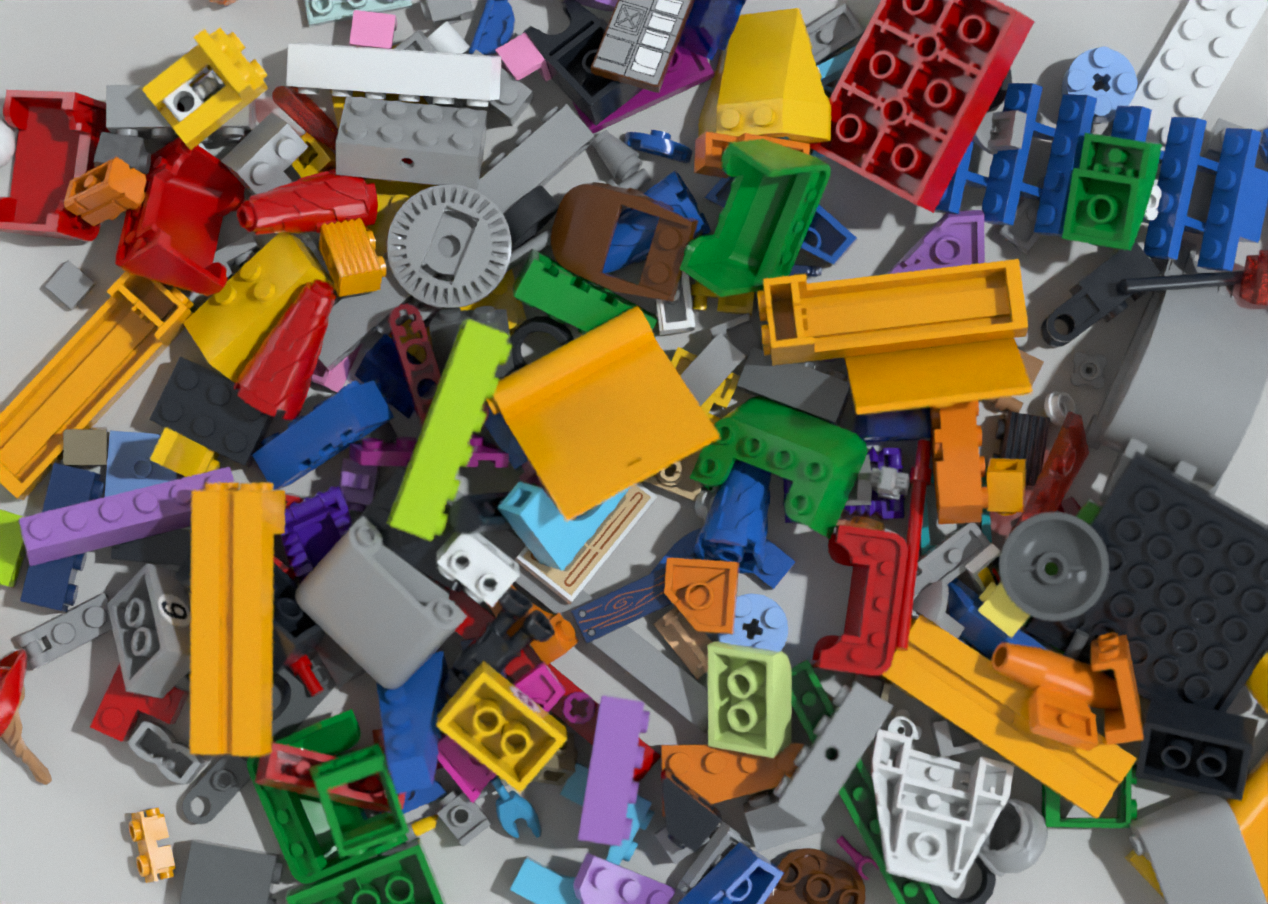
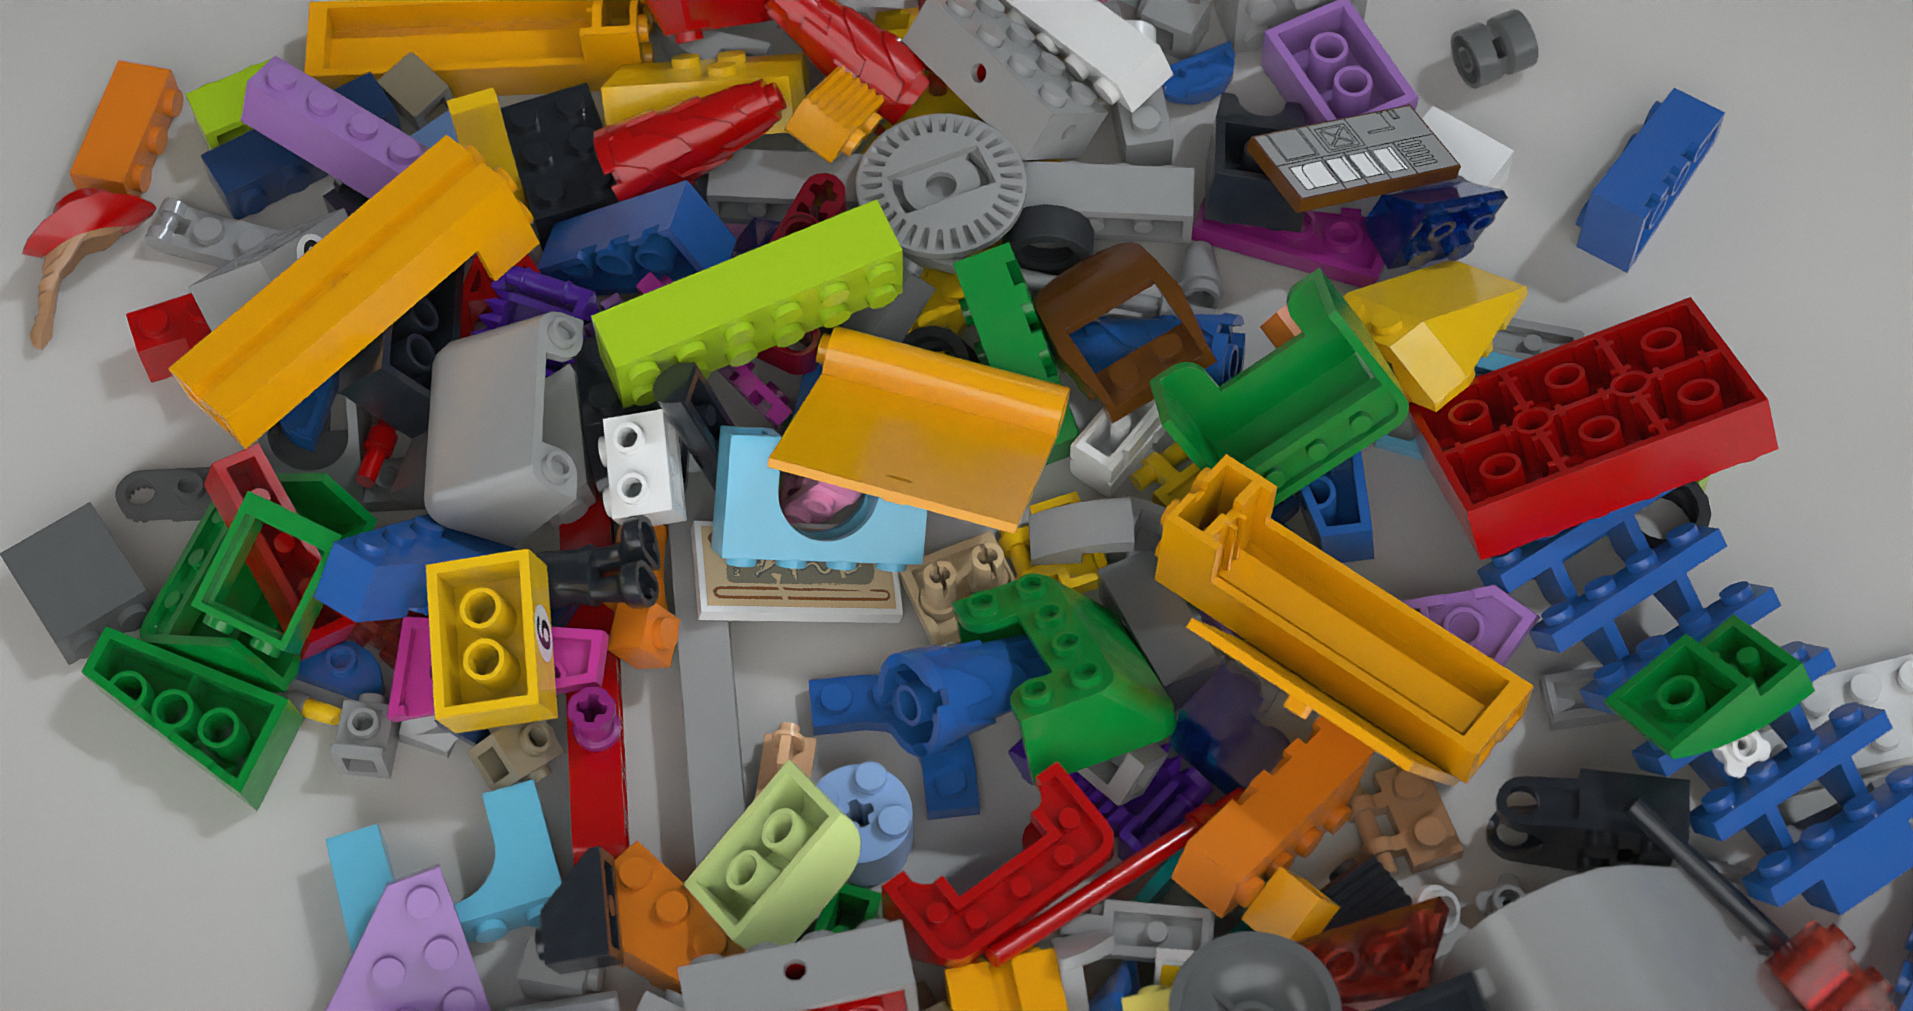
camera: 50 degrees right, 25 degrees down
(146, 833) = (66, 468): light orange hinge -> none
(158, 745) = (165, 410): light grey brick -> none
(511, 807) = (425, 771): dark azure hand -> none
(522, 58) = (1193, 114): bright pink panel -> none
(611, 771) = (552, 799): medium lavender brick -> none
(623, 606) = (778, 681): dark blue tile -> none
(658, 144) = (1251, 299): blue plate -> none
(704, 592) = (845, 721): orange plate -> none
(889, 483) = (1160, 781): light grey hinge -> none
(1001, 131) = (1630, 544): light grey tile -> none
(1105, 66) = (1811, 610): light blue brick -> none

